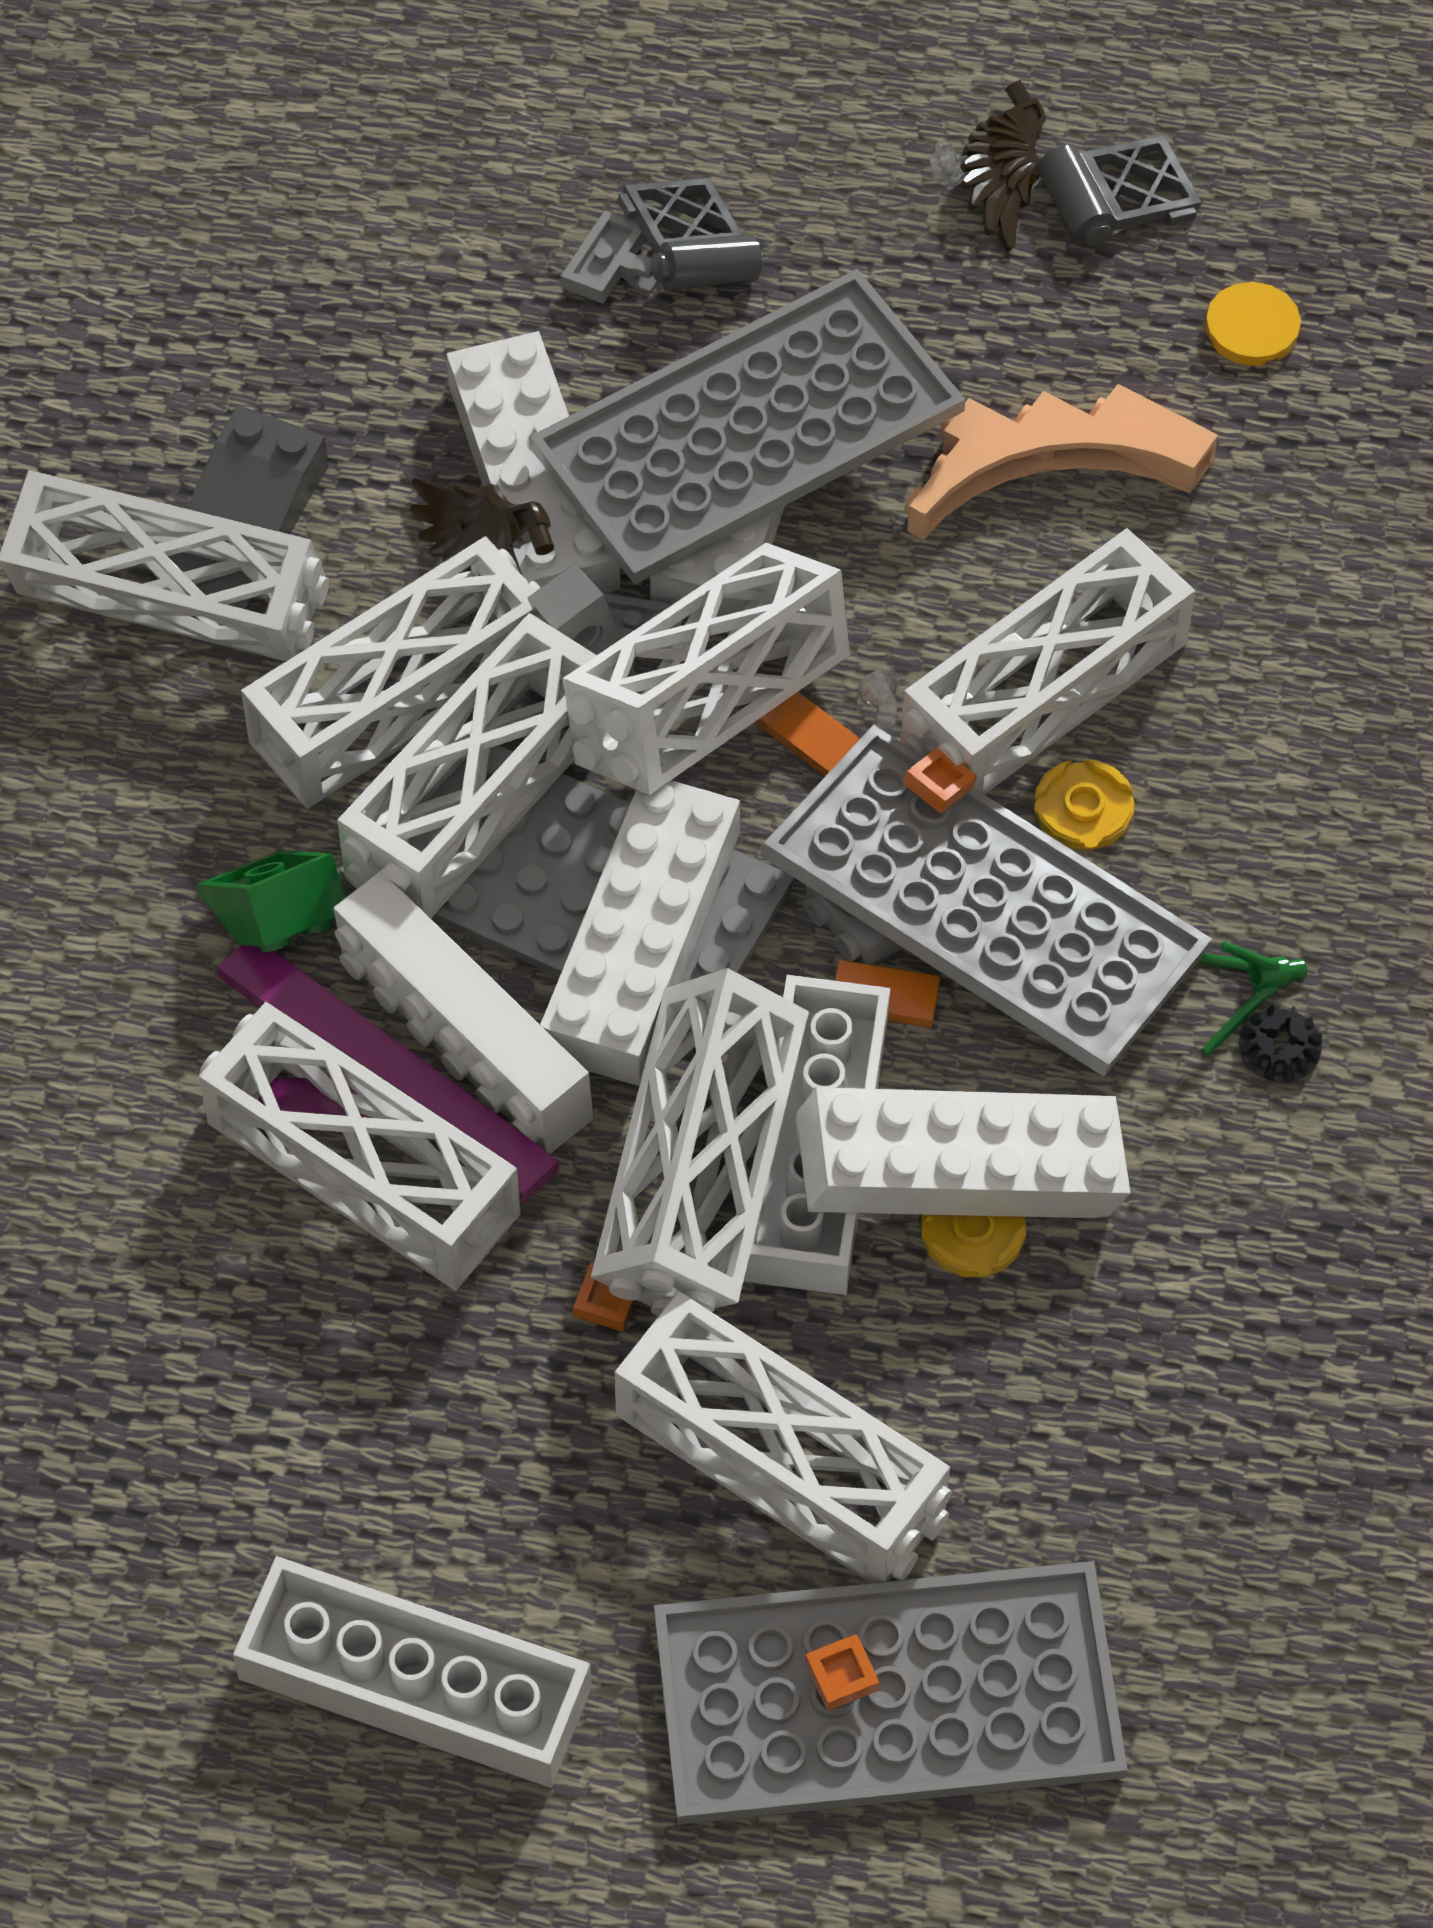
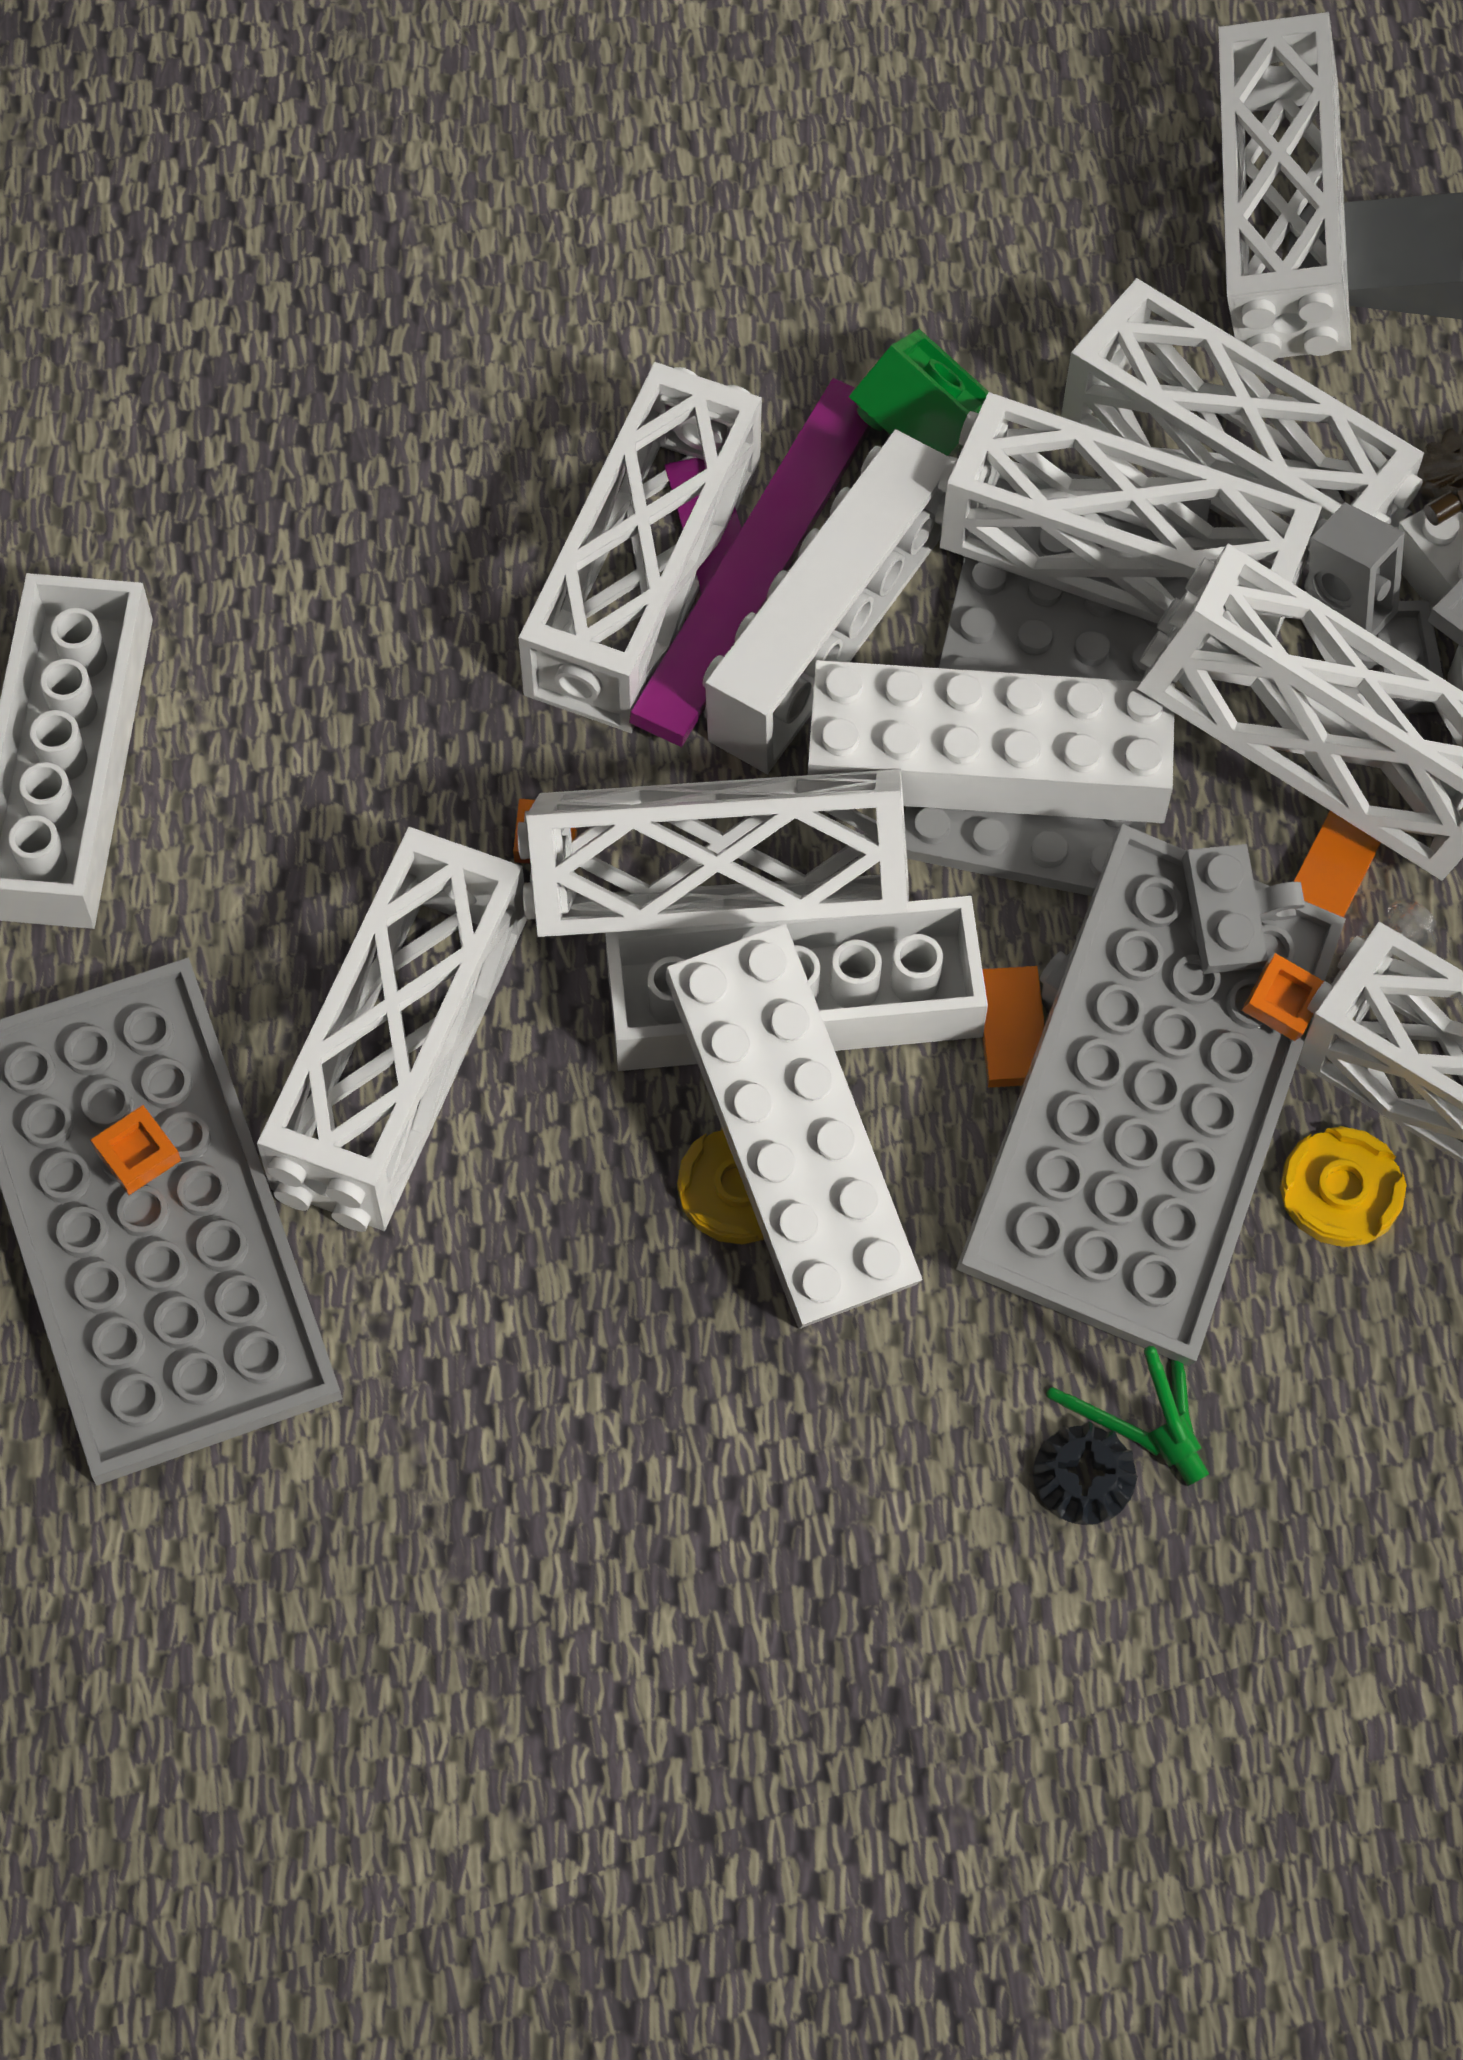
camera: 75 degrees right, 5 degrees up
(854, 792) = (1230, 910): none -> light grey plate

